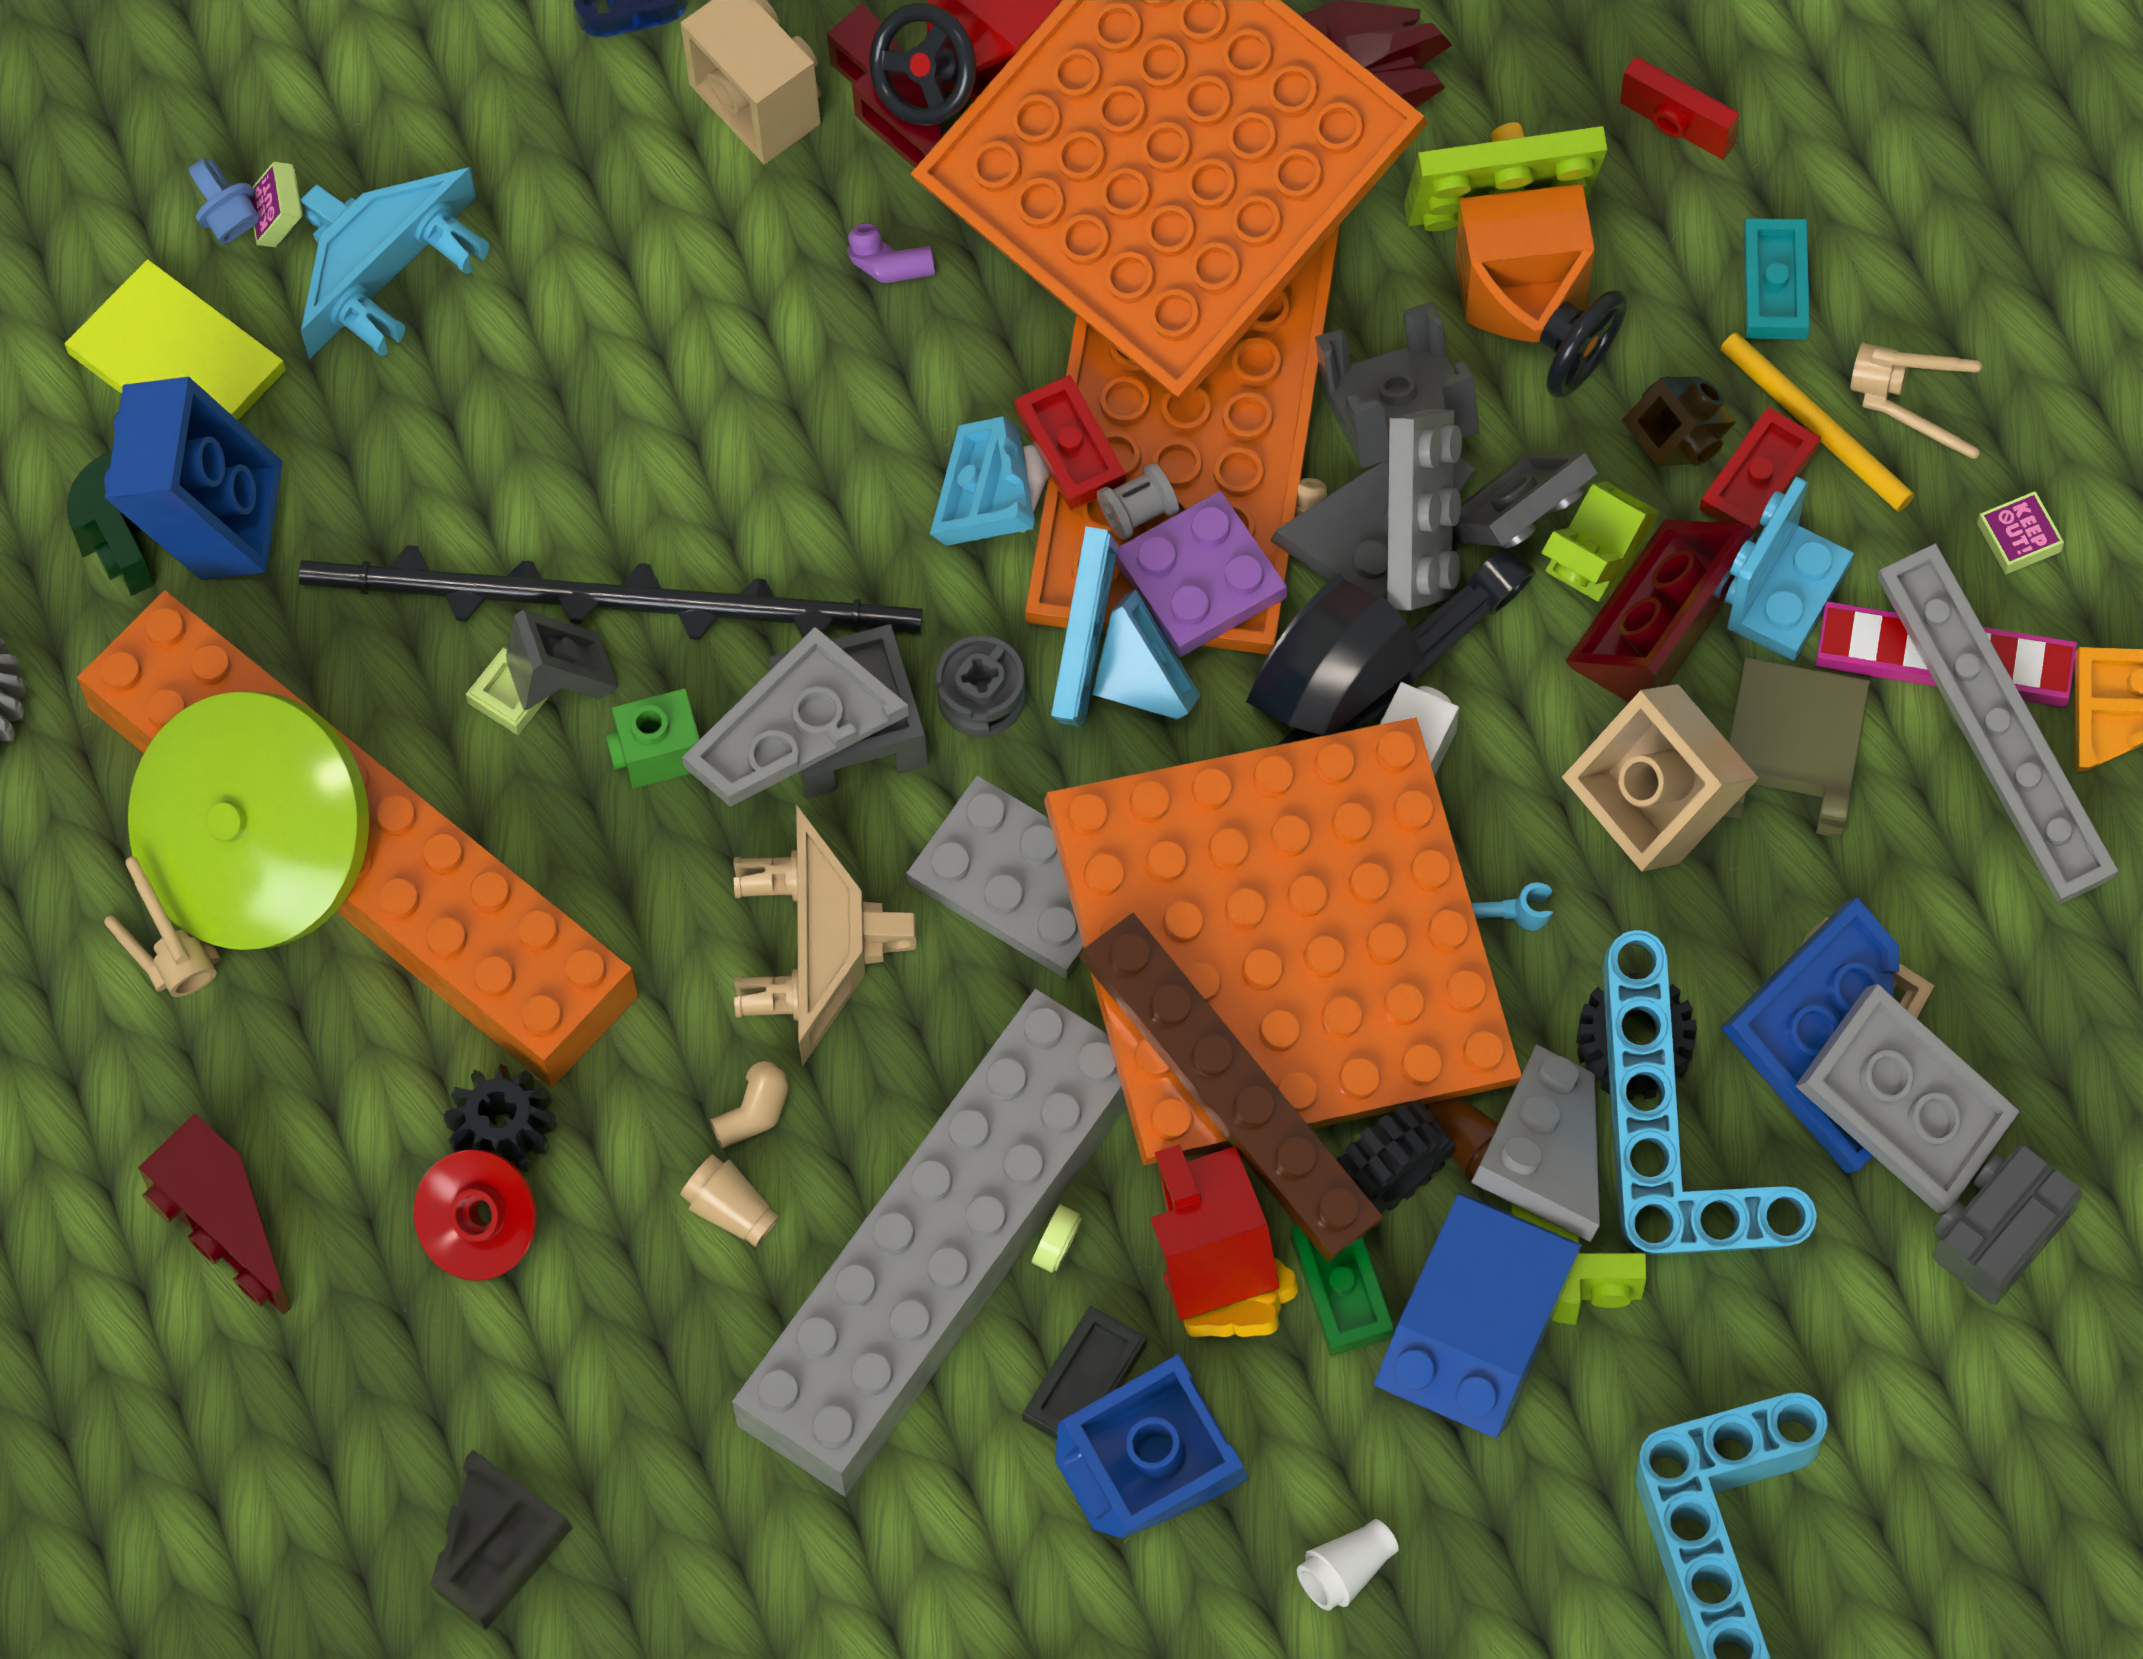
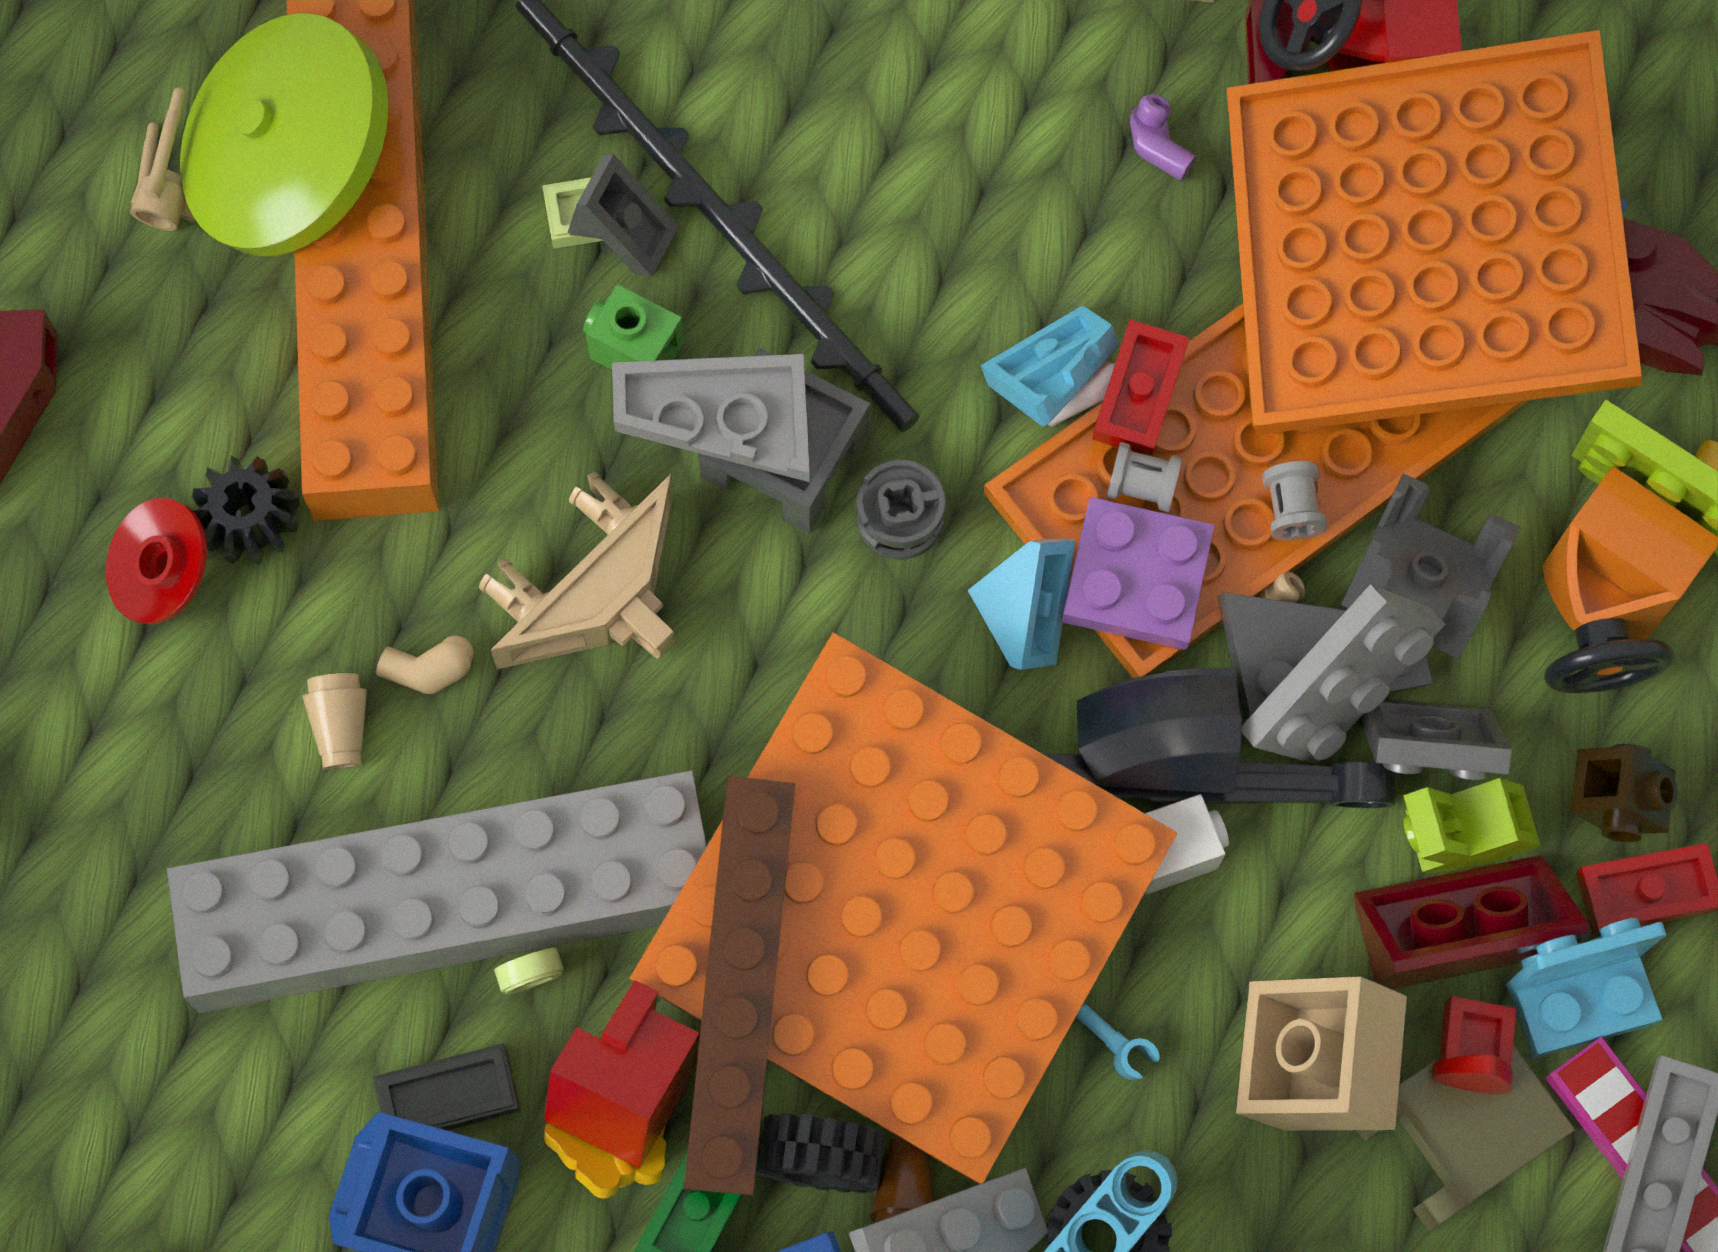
camera: 40 degrees right, 5 degrees up
(1003, 873) = (766, 650): light grey plate -> none
(1085, 627) = (1000, 532): medium azure tile -> none
(1259, 423) = (1294, 500): none -> light grey bush
(1752, 683) = (1476, 1046): none -> red tile

